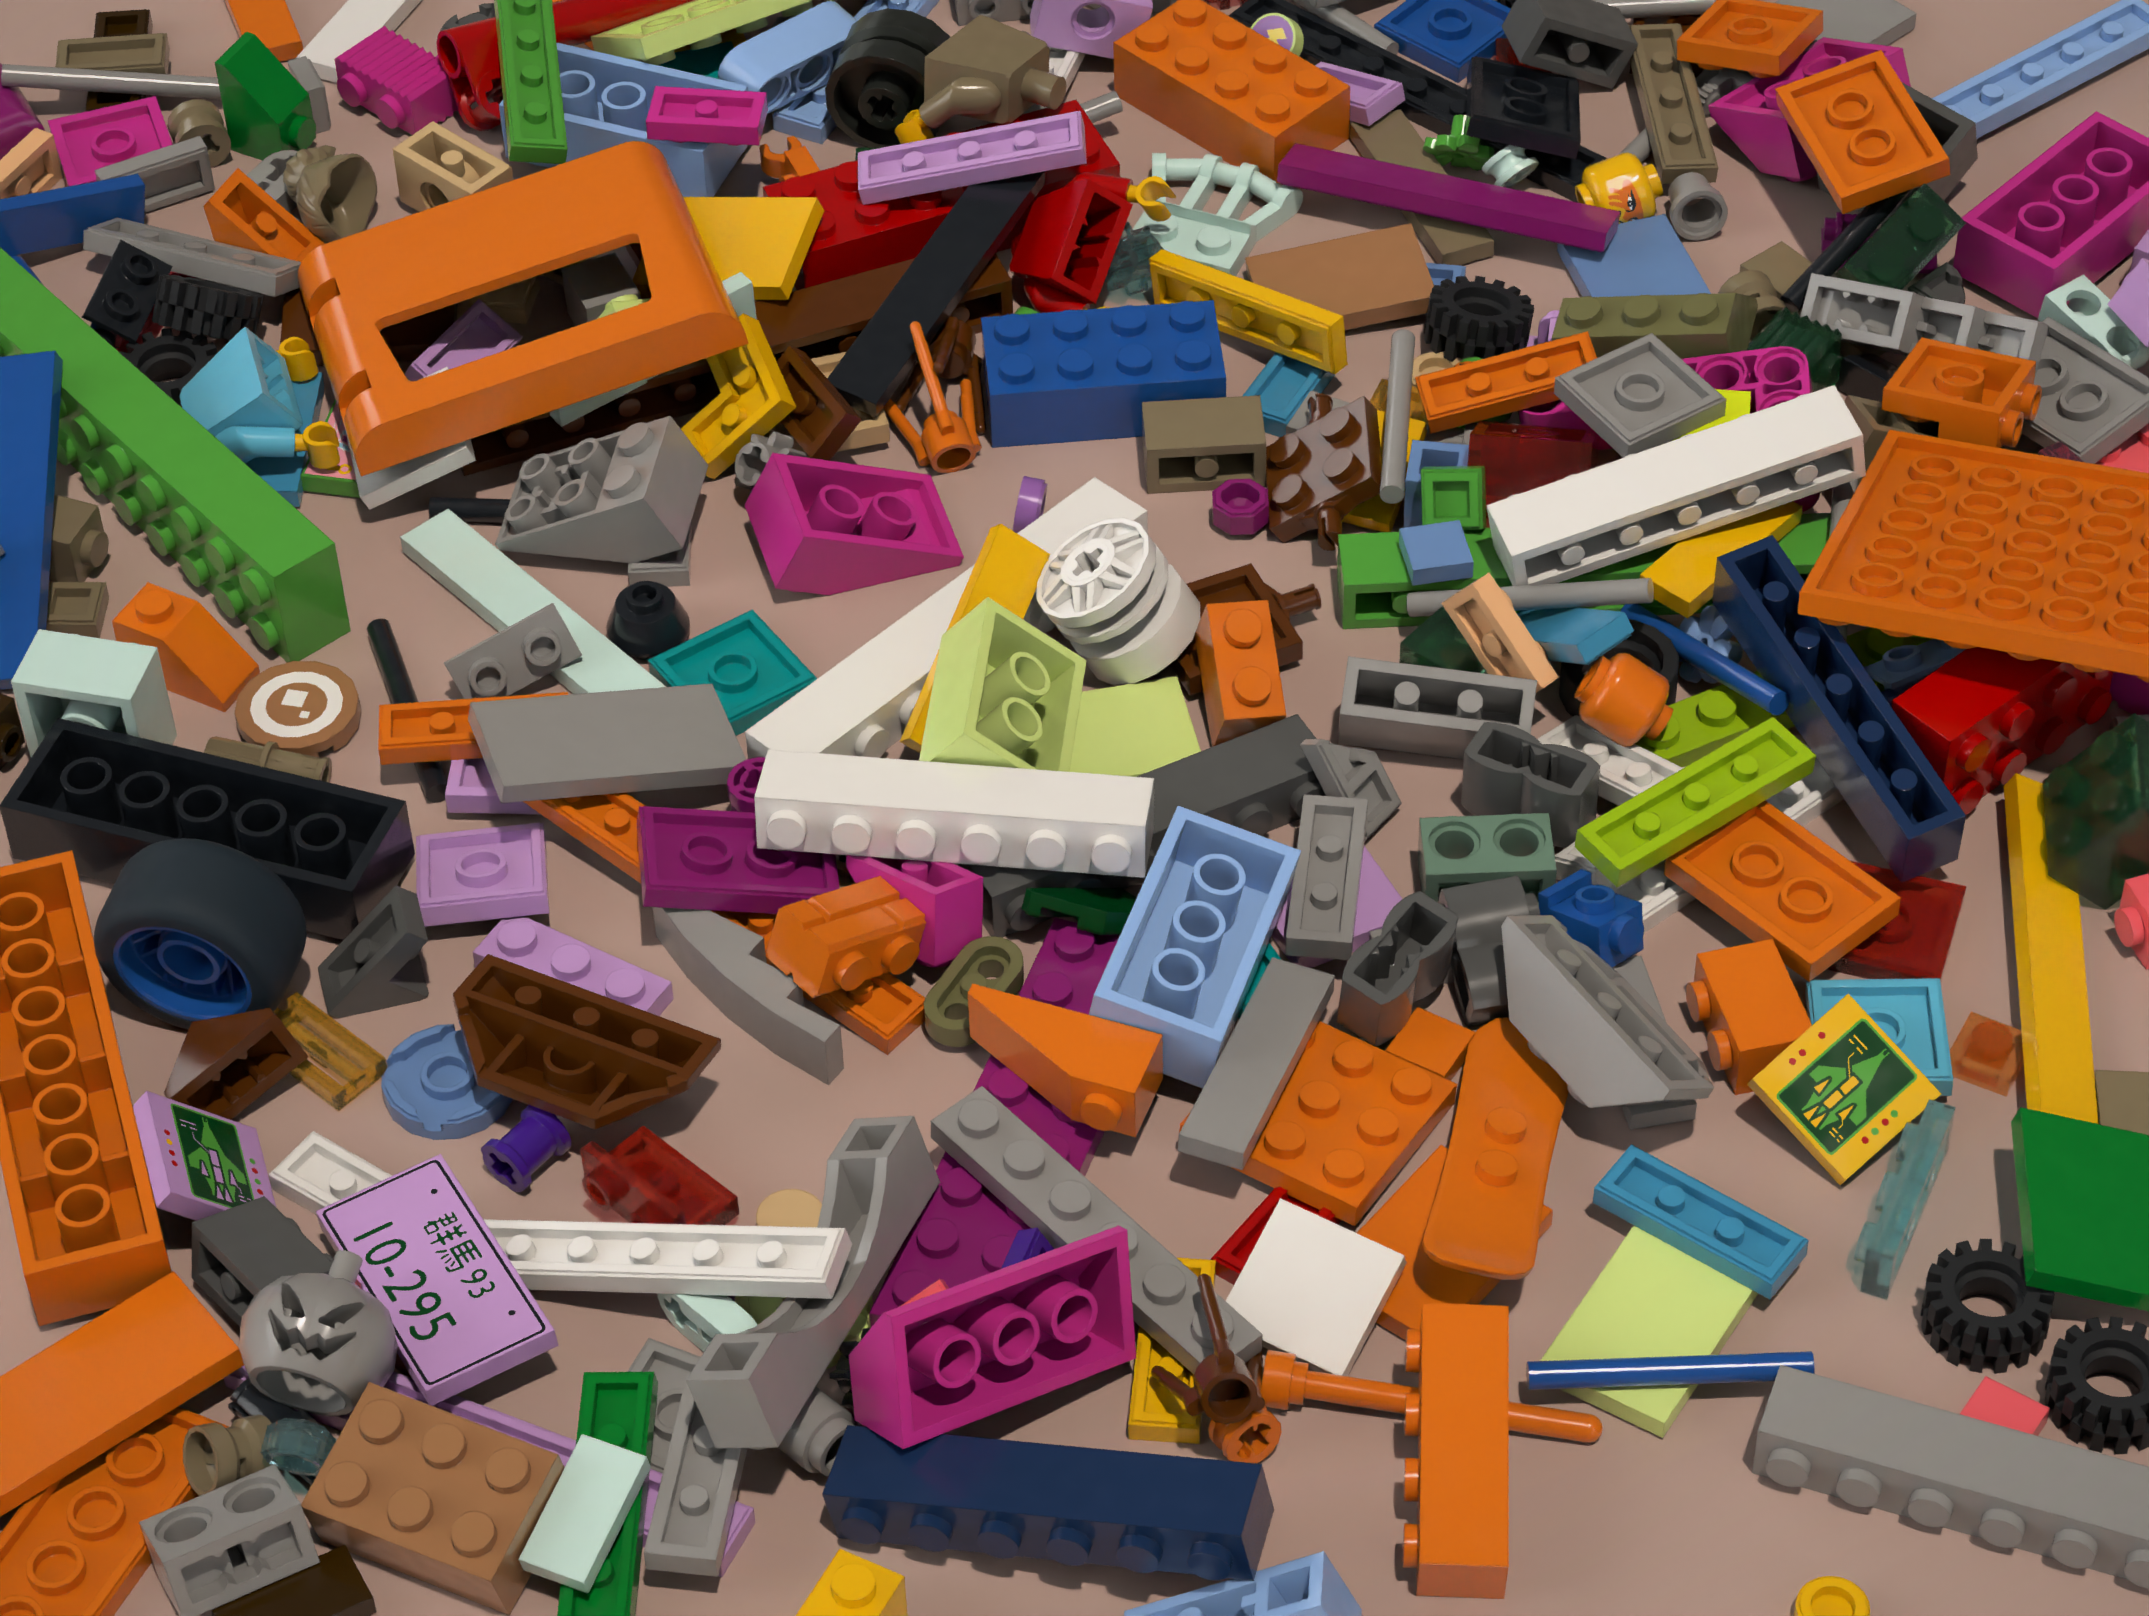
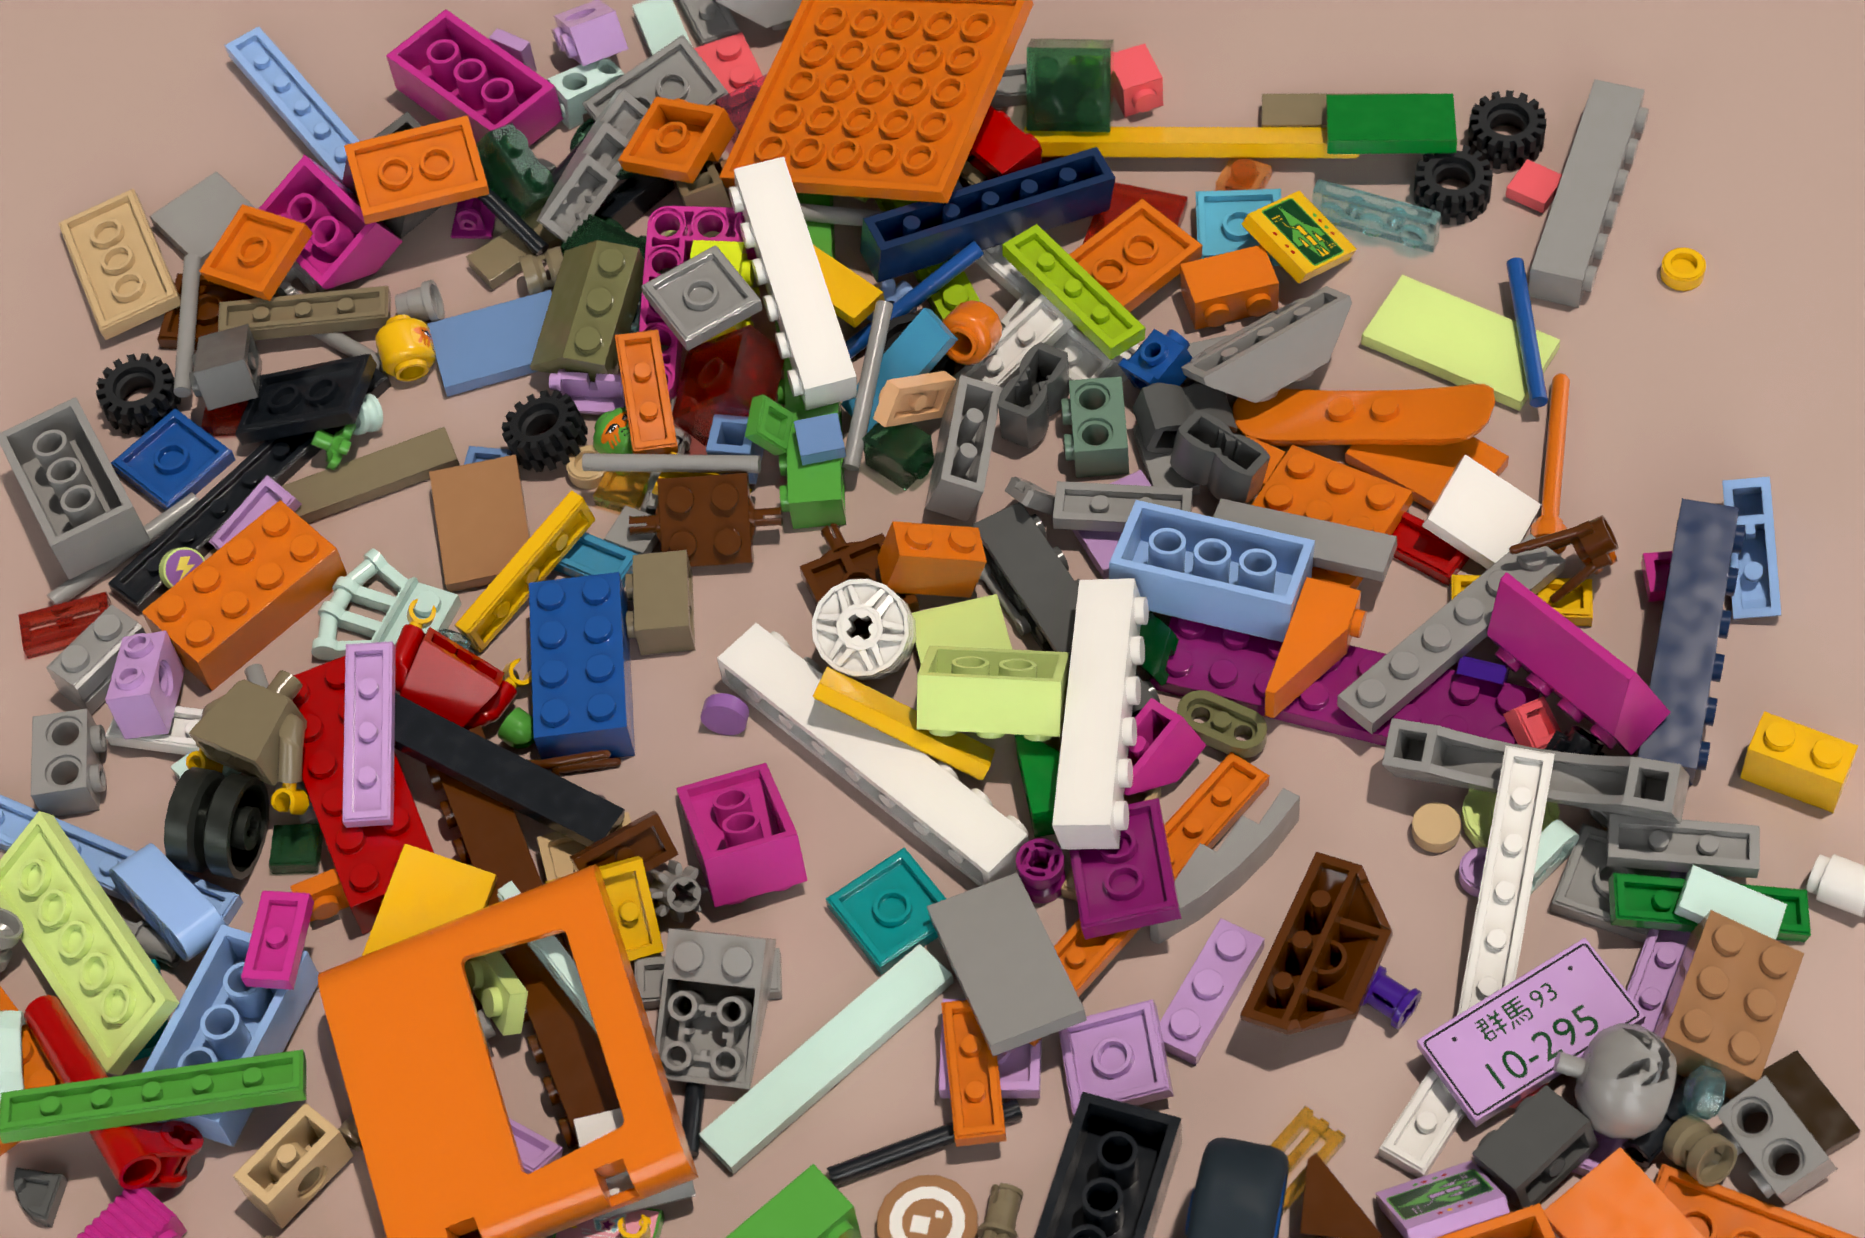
camera: 85 degrees left, 10 degrees up
(378, 960) = (1210, 1106): dark grey slope -> none
(434, 1087) = (1318, 1068): medium blue tile -> none
(514, 656) = (879, 1040): light grey hinge -> none
(647, 620) = (836, 973): black cone -> none
(654, 1183) = (1428, 903): clear red bracket -> none
(846, 937) = (1205, 784): orange brick -> none
(947, 440) = (640, 773): orange plant -> none
(1240, 506) = (727, 581): magenta tile -> none
(1448, 197) = (403, 449): magenta tile -> none
(1462, 1451) = (1608, 429): orange brick -> none
(1700, 1221) = (1405, 315): dark azure tile -> none

